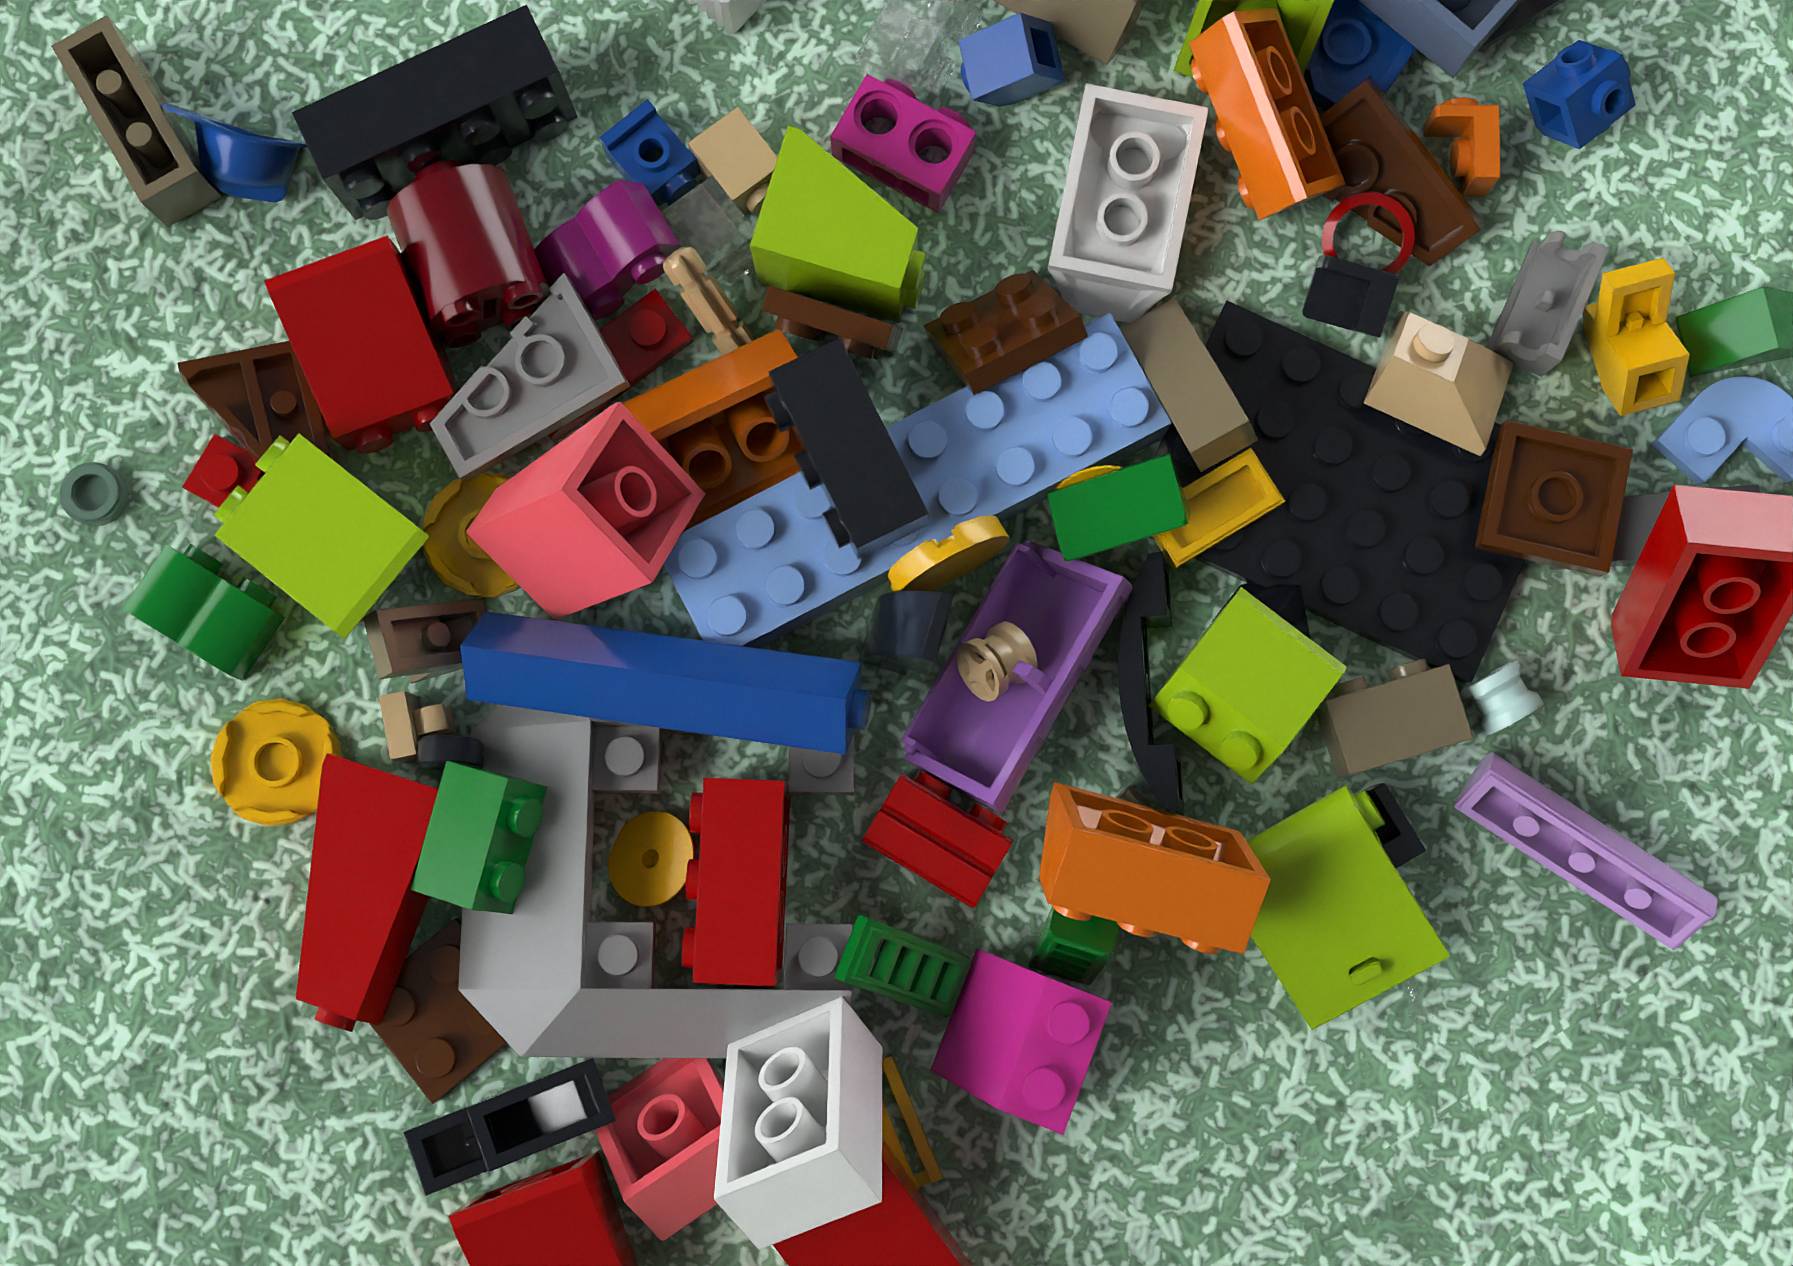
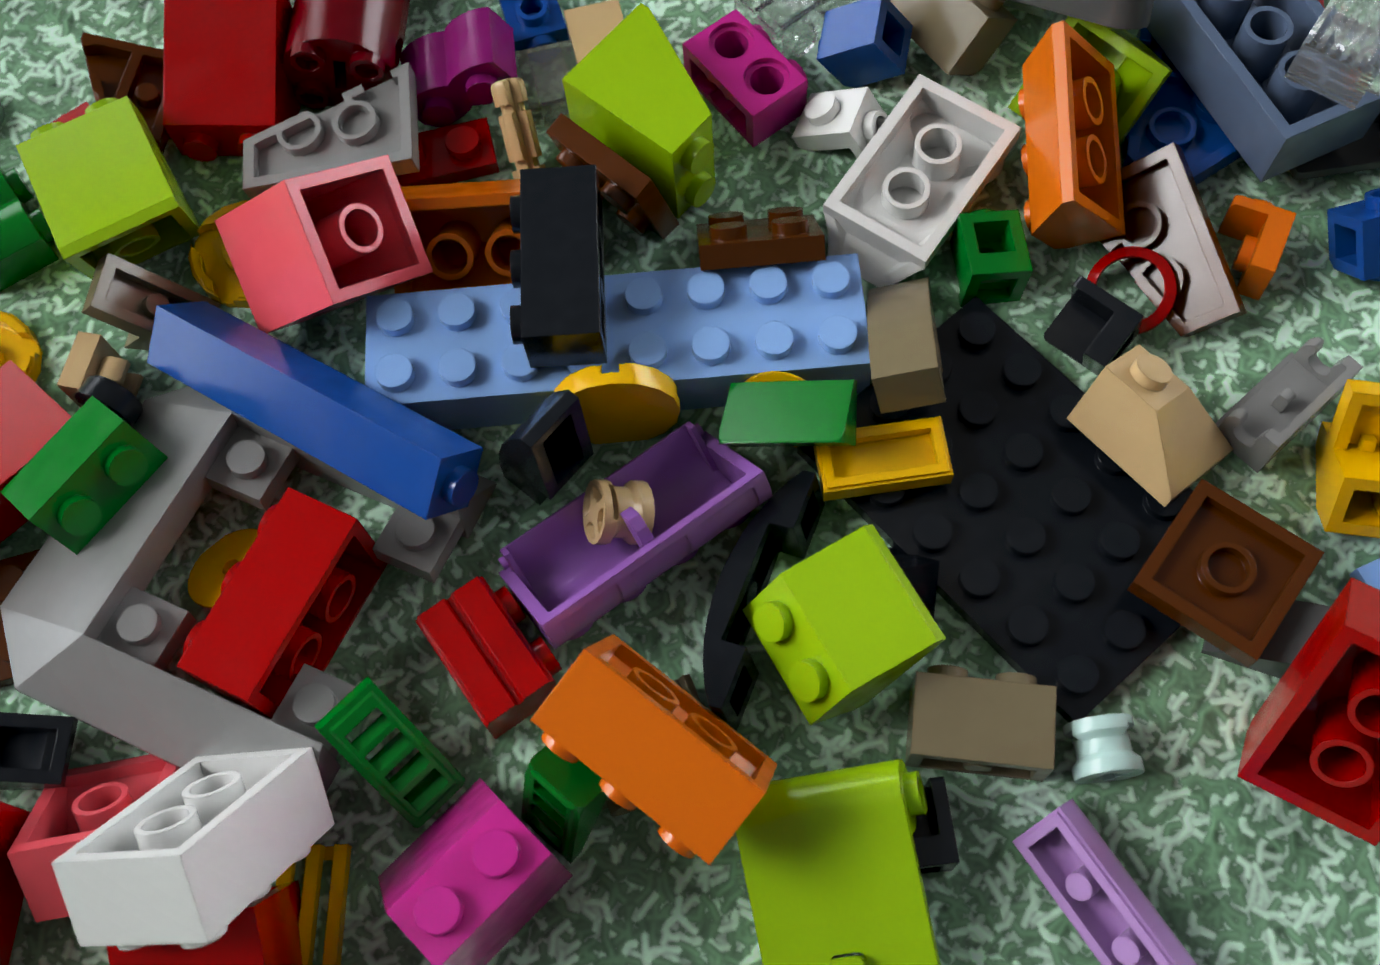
camera: 30 degrees right, 15 degrees down
(1021, 157) = (839, 120): none -> white bracket
(1236, 235) = (990, 256): none -> green brick

